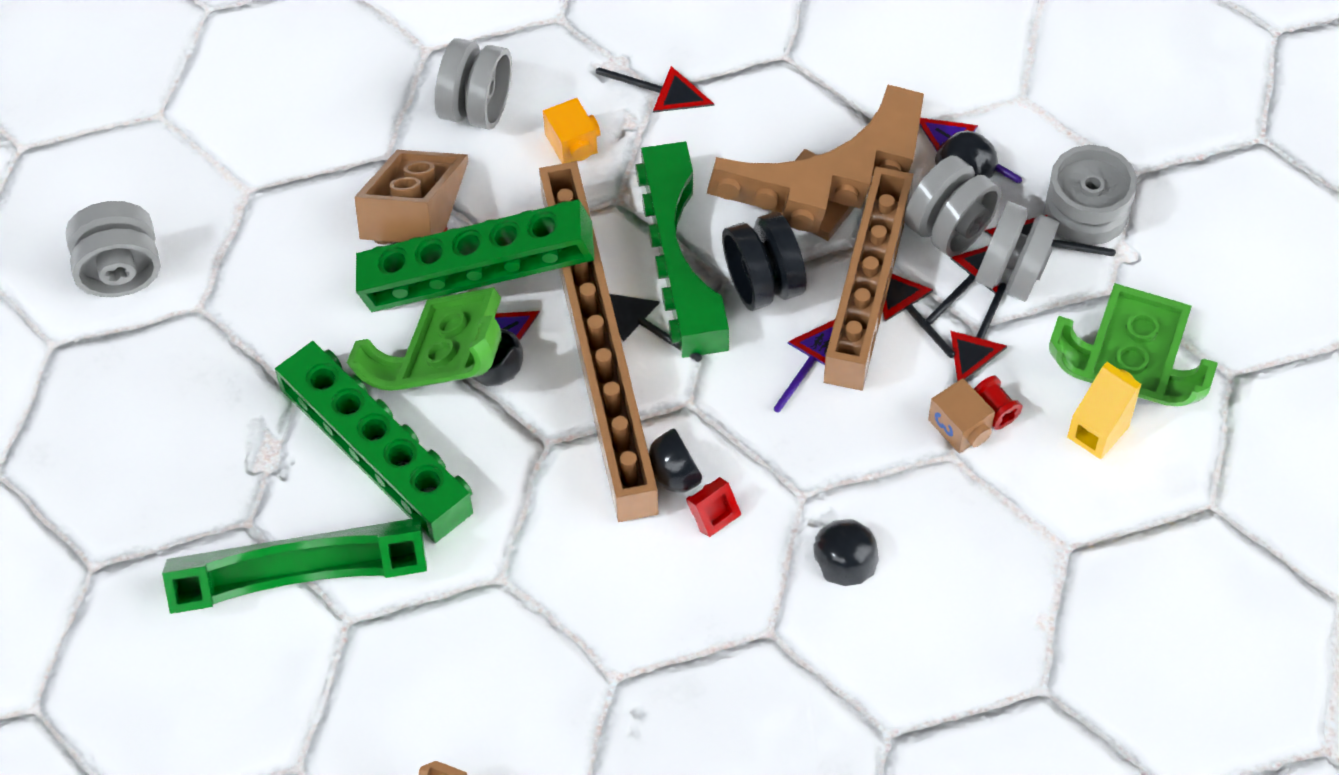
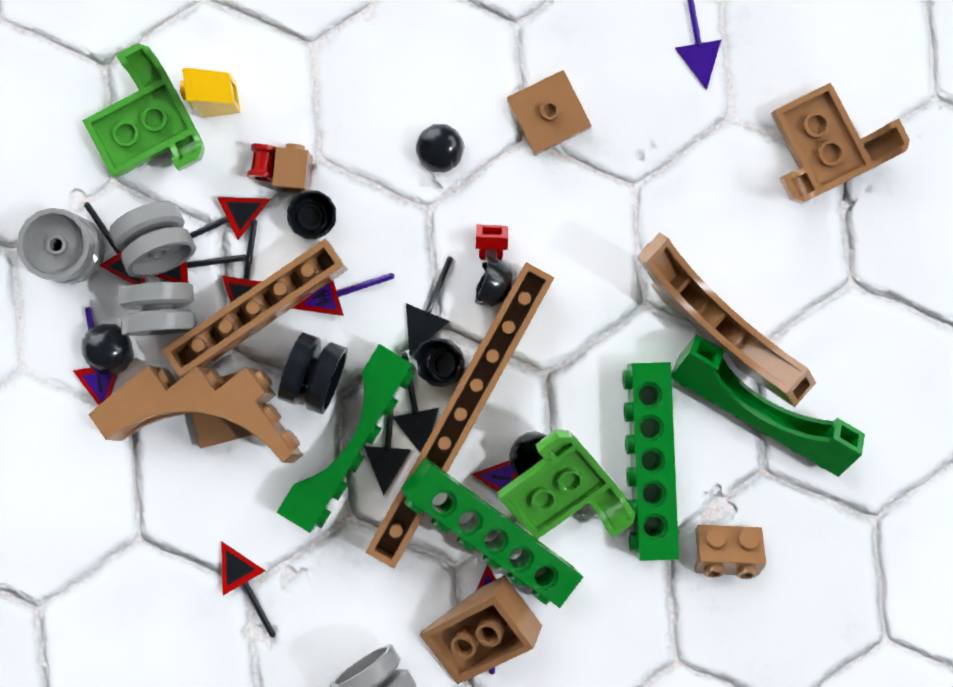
camera: 145 degrees left, 30 degrees up
(228, 425) = (729, 551): none -> medium nougat bracket
(353, 595) = (718, 323): none -> medium nougat arch
(571, 131) = (337, 593): light orange brick -> none
(631, 264) = (386, 460): none -> black piece
(658, 366) = (439, 362): none -> black hair
(709, 394) = (422, 323): none -> black piece
(770, 672) = (549, 112): none -> medium nougat plate
(903, 392) = (311, 214): none -> black hair

